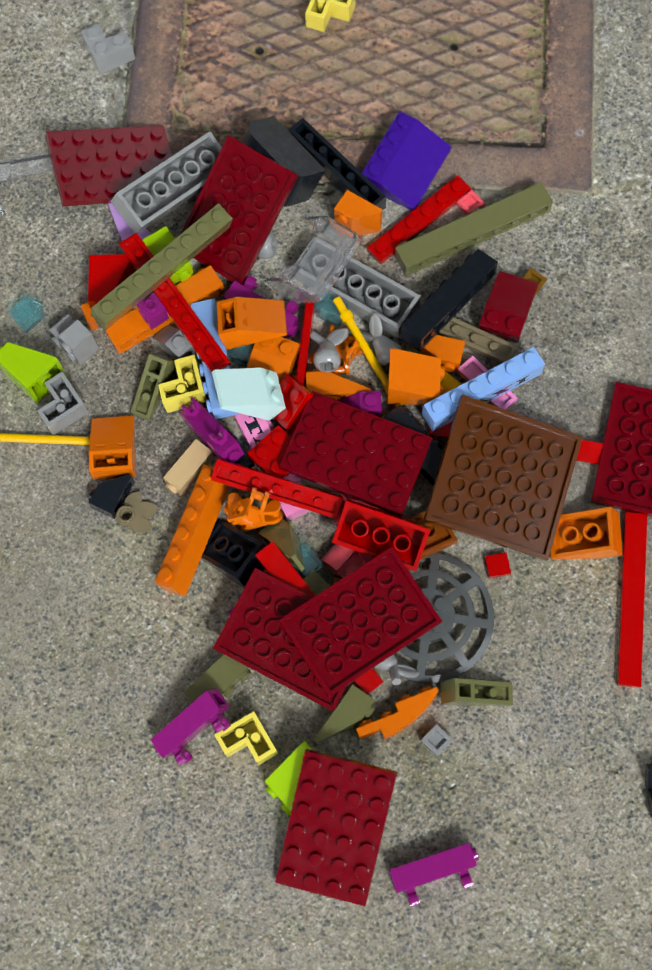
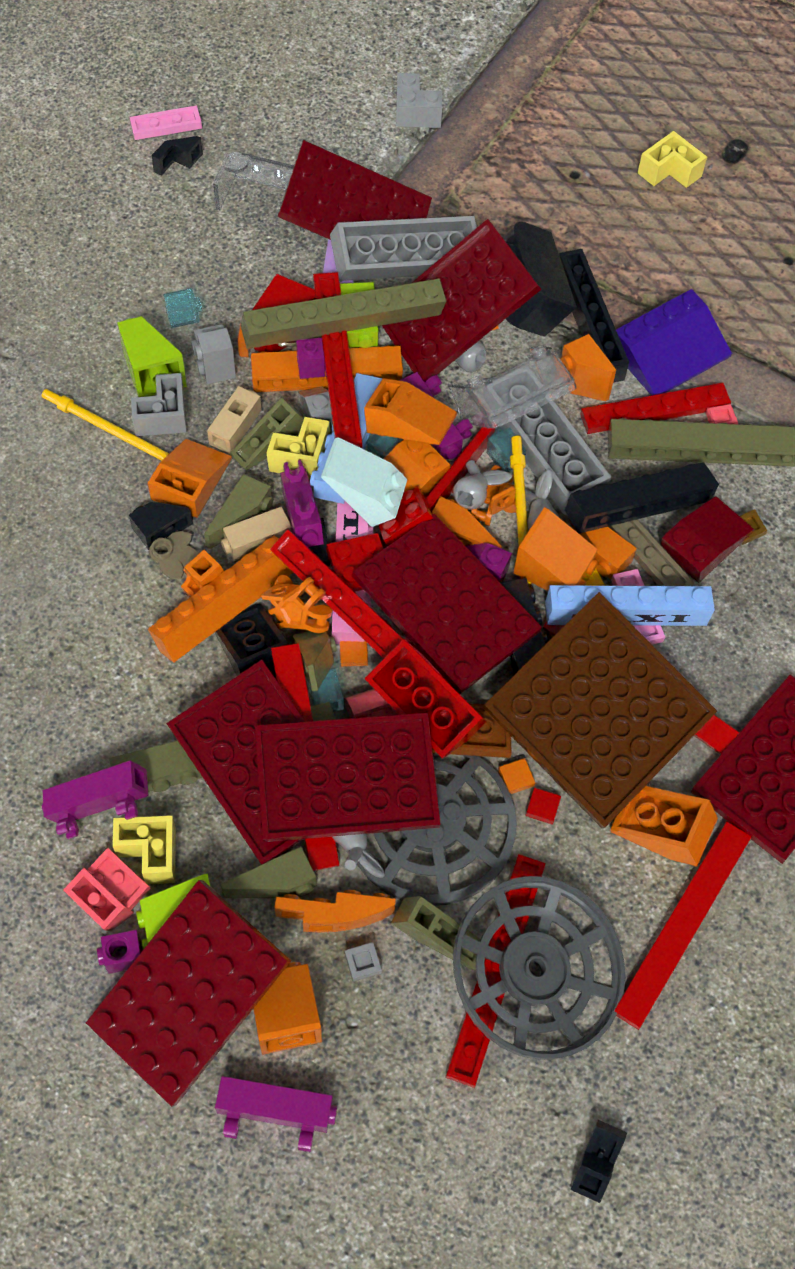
camera: 20 degrees right, 10 degrees down
(120, 385) = (234, 419): none -> tan brick
(166, 452) = (245, 501): none -> olive slope
(167, 520) = (200, 572): none -> orange brick
(237, 785) = (107, 890): none -> coral brick
(281, 822) = (128, 940): none -> magenta brick
(306, 522) = (353, 653): none -> orange tile
(409, 802) = (288, 1012): none -> orange slope
(468, 553) = (517, 776): none -> orange tile
(526, 697) = (472, 1042): none -> red tile
(566, 677) = (554, 965): none -> dark grey dish

